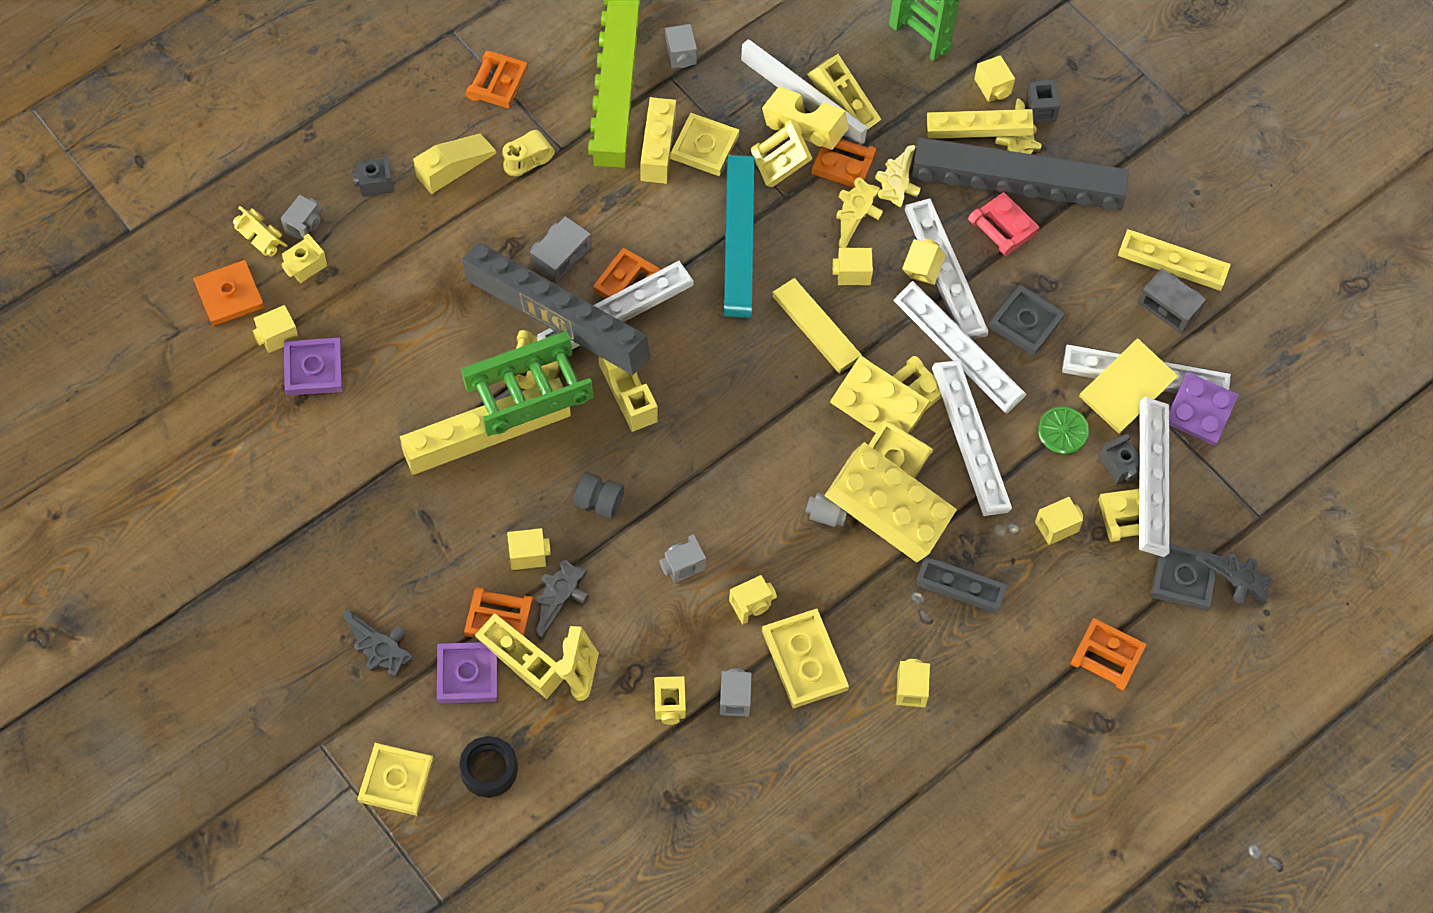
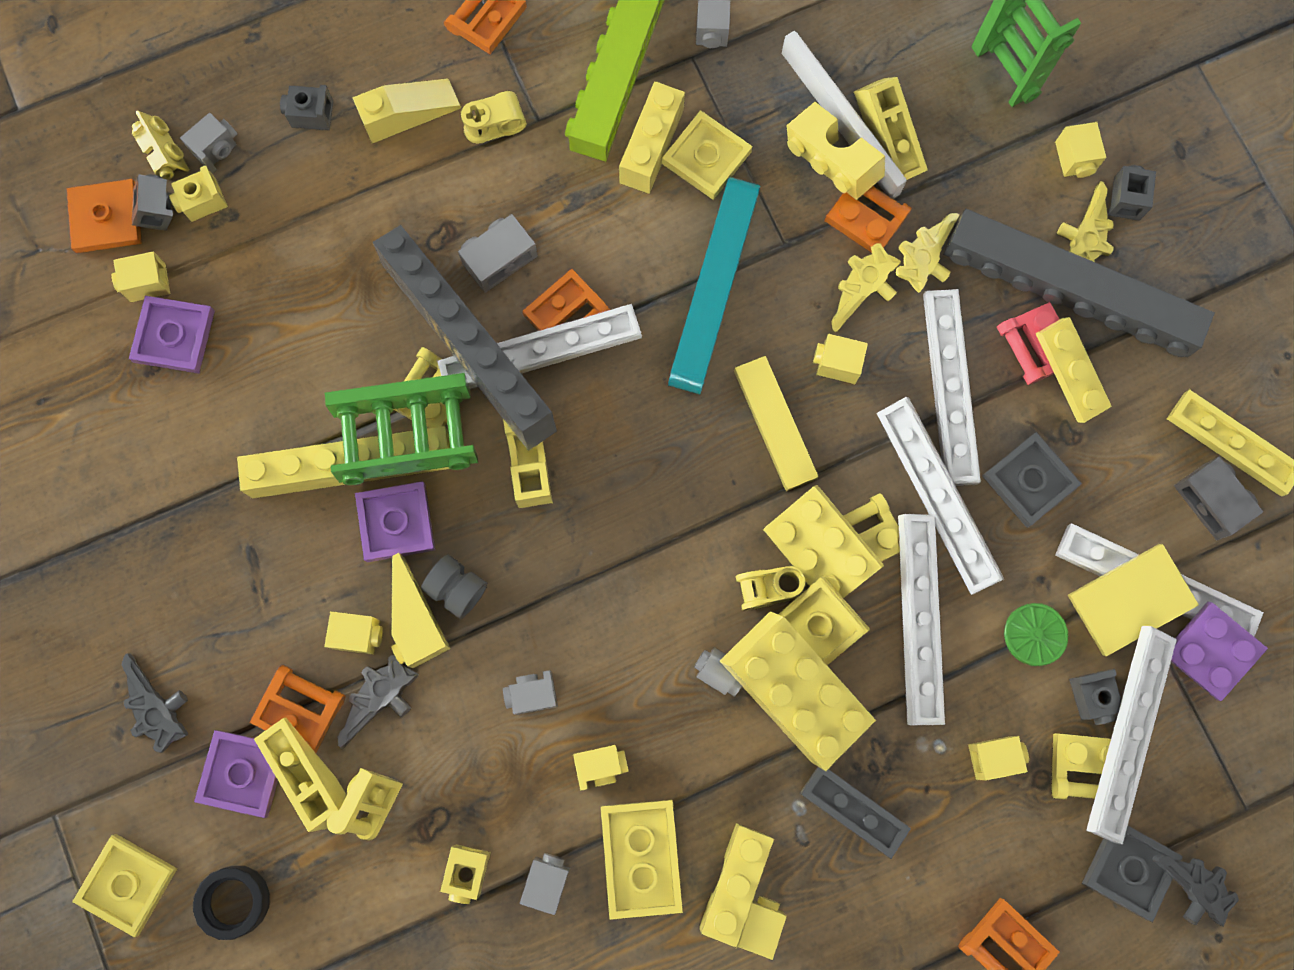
camera: 15 degrees right, 15 degrees up
(268, 272) = (151, 203): none -> brick
(536, 462) = (394, 521): none -> medium lavender plate
(577, 534) = (413, 623): none -> light yellow slope
(784, 159) = (797, 199): light yellow plate -> none
(842, 441) = (767, 587): none -> light yellow piece
(884, 655) = (736, 886): none -> light yellow arch
(924, 261) = (928, 374): light yellow brick -> none
(980, 124) = (1046, 205): light yellow plate -> none
(1035, 234) = (1073, 370): none -> light yellow plate

